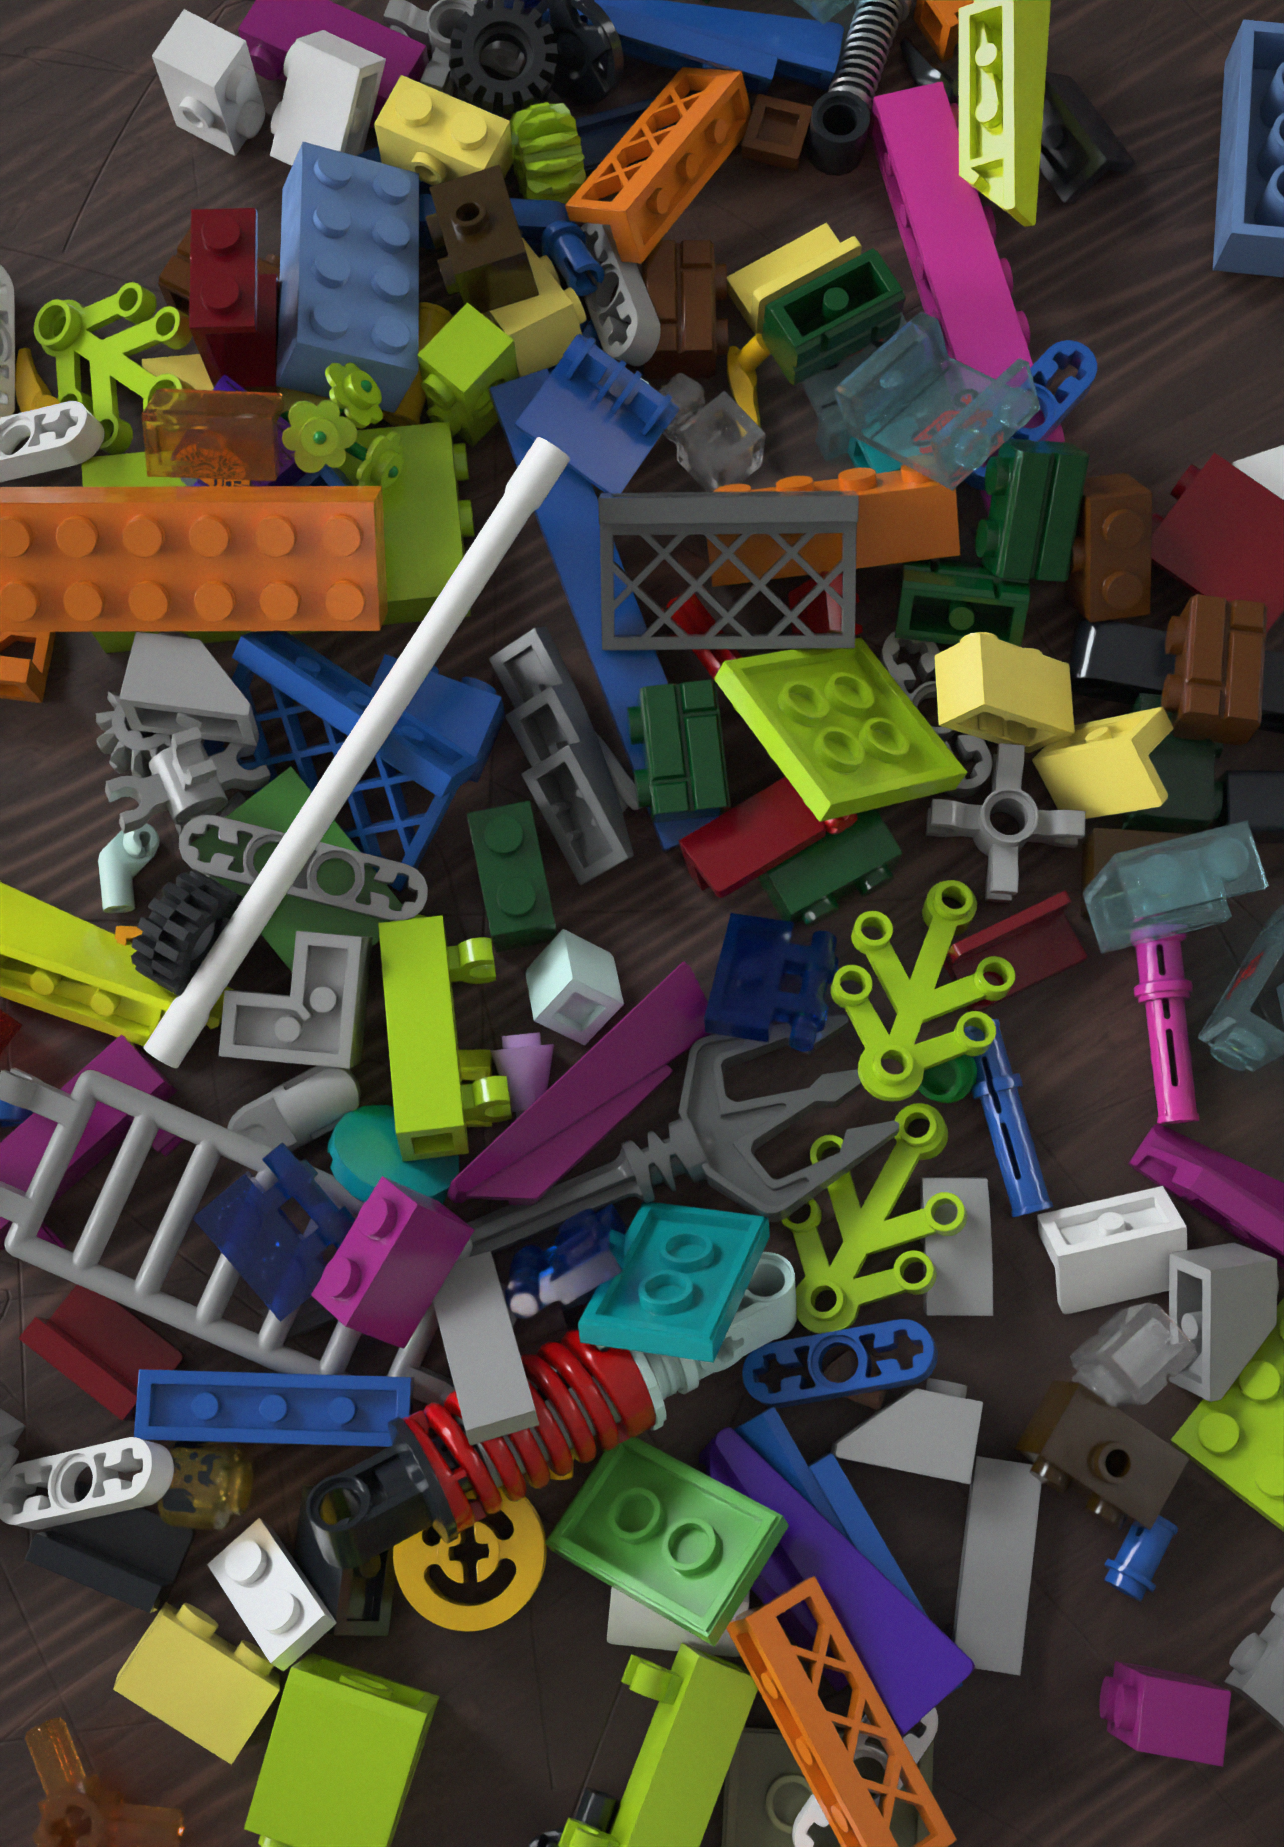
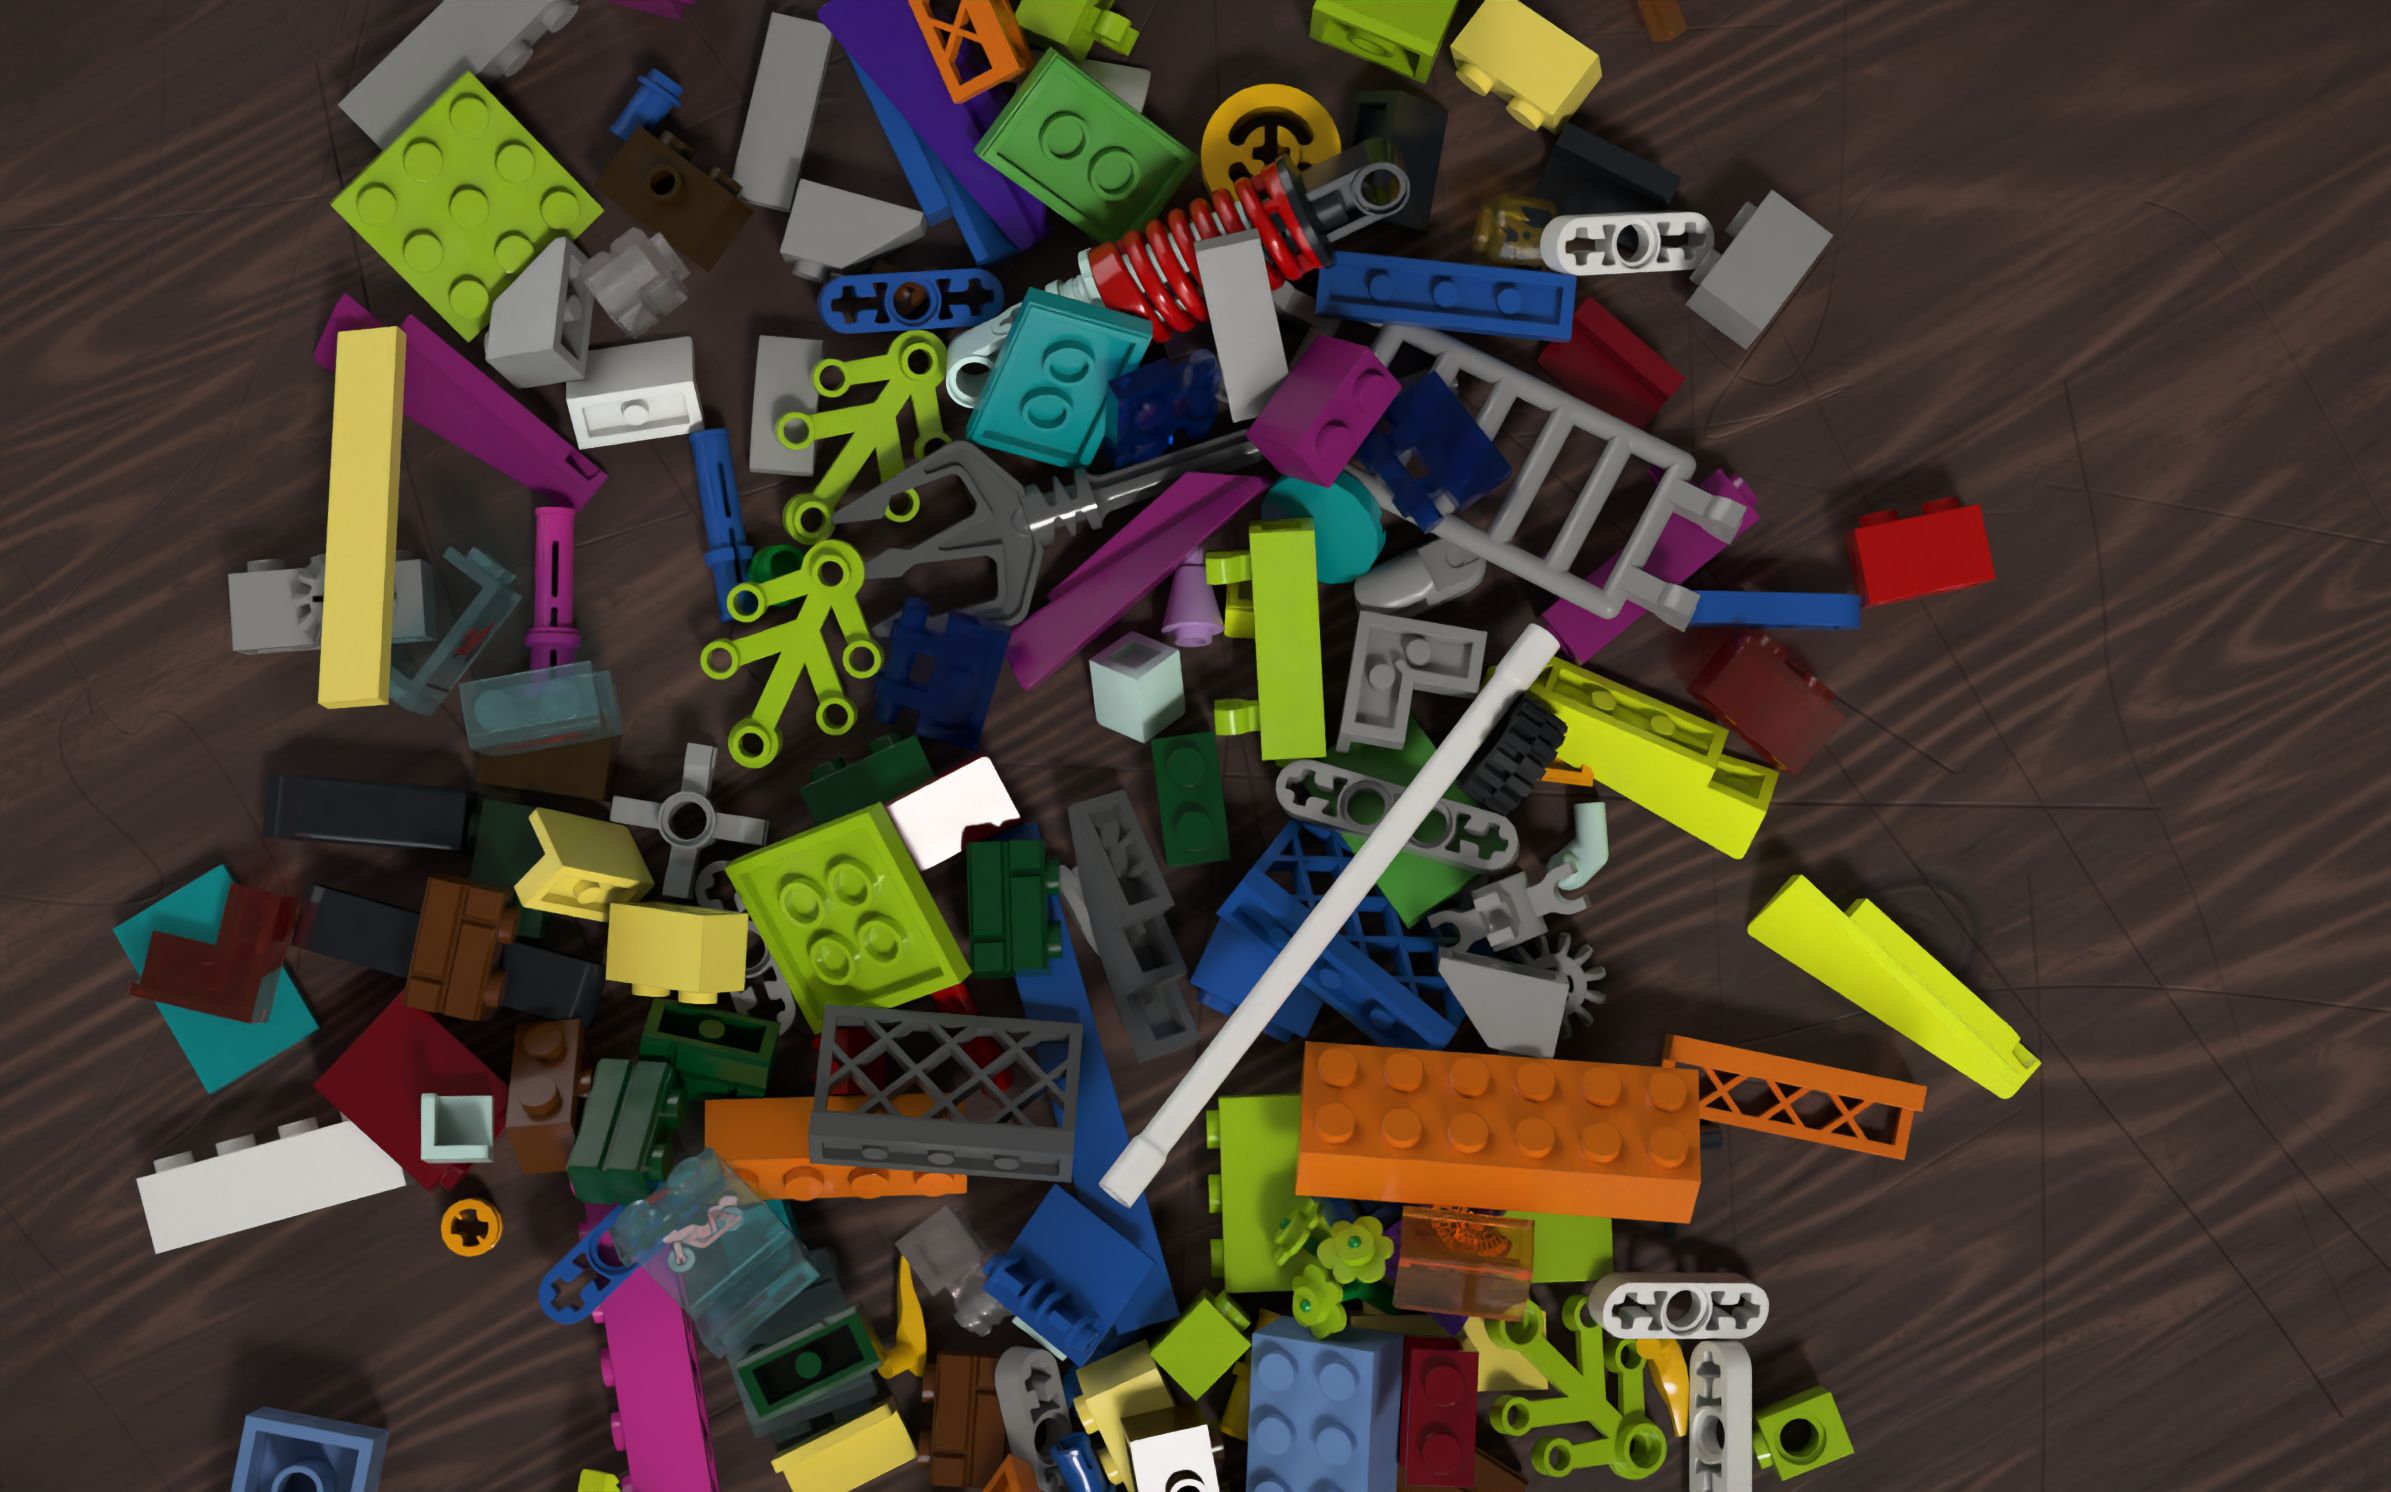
camera: 175 degrees left, 10 degrees up
(271, 1594) = (1456, 133): white plate -> none
(1033, 941) = (684, 694): dark red panel -> none
(1175, 435) = (485, 1212): none -> light orange bush
(1196, 499) = (457, 1129): none -> light aqua panel

